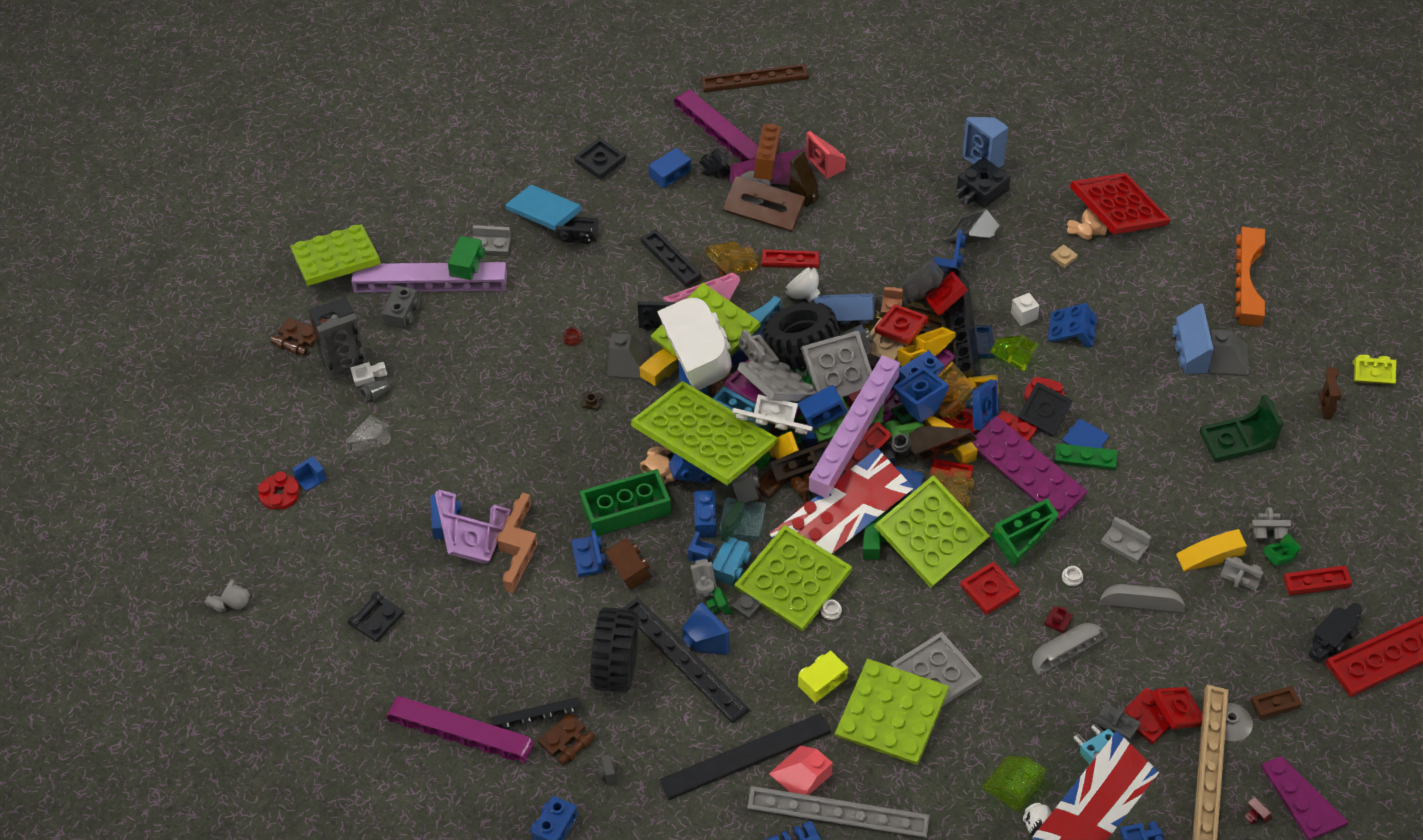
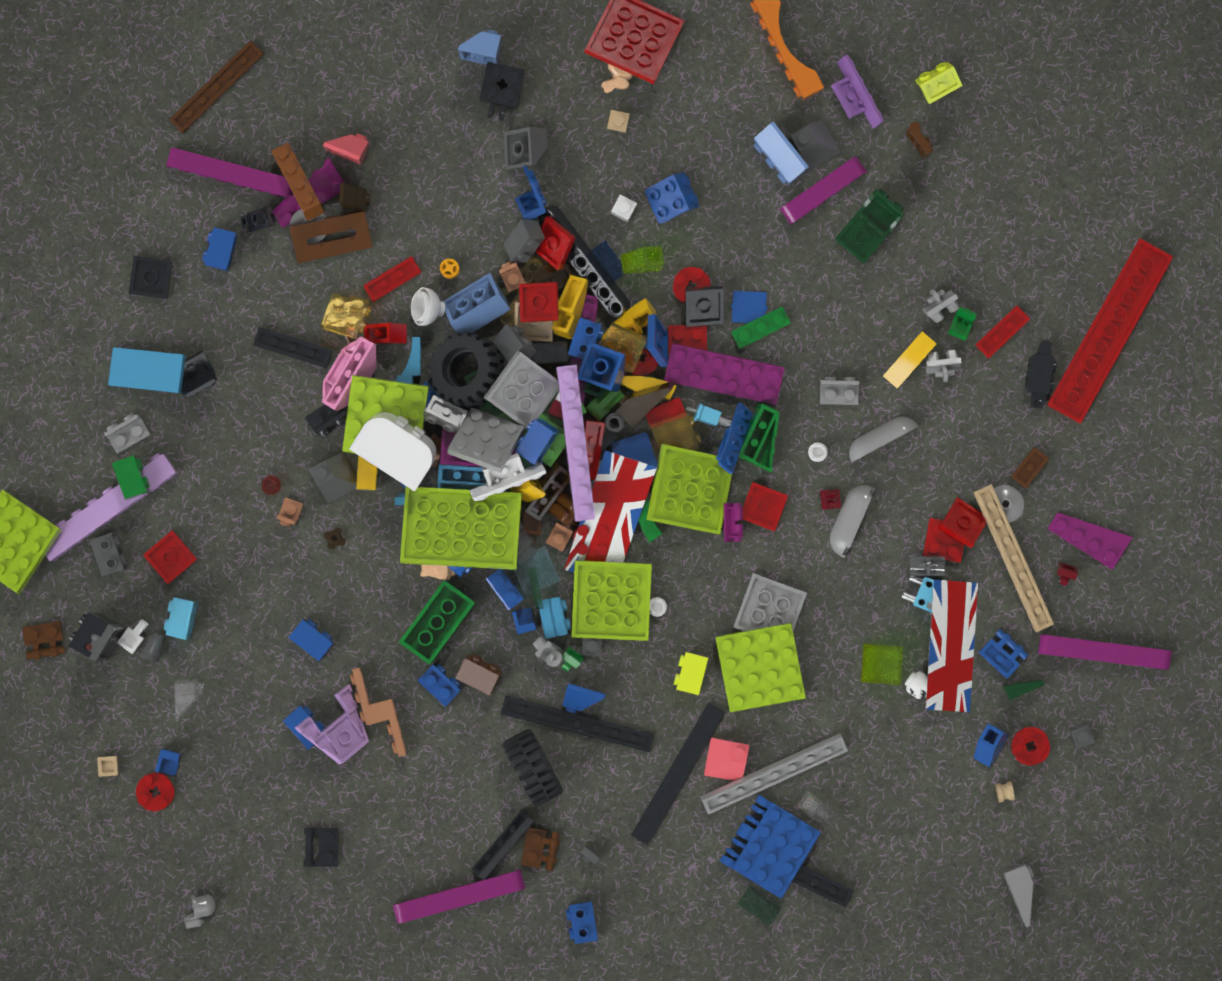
camera: 35 degrees left, 35 degrees up
(259, 449) = (108, 766): none -> tan plate
(417, 380) = (181, 618): none -> medium azure slope
(447, 337) = (170, 557): none -> red plate
(508, 457) = (311, 639): none -> blue brick
(570, 363) = (289, 512): none -> nougat bracket
(756, 287) = (386, 333): none -> red slope
(786, 506) = (560, 536): none -> nougat bracket
(843, 274) = (447, 265): none -> light orange wheel
(951, 582) = (732, 529): none -> magenta hinge
(990, 487) = (708, 416): none -> medium azure piece
(998, 510) = (734, 438): none -> blue bracket
(1214, 388) = (823, 190): none -> magenta beam
(1289, 339) = (854, 94): none -> medium lavender bracket

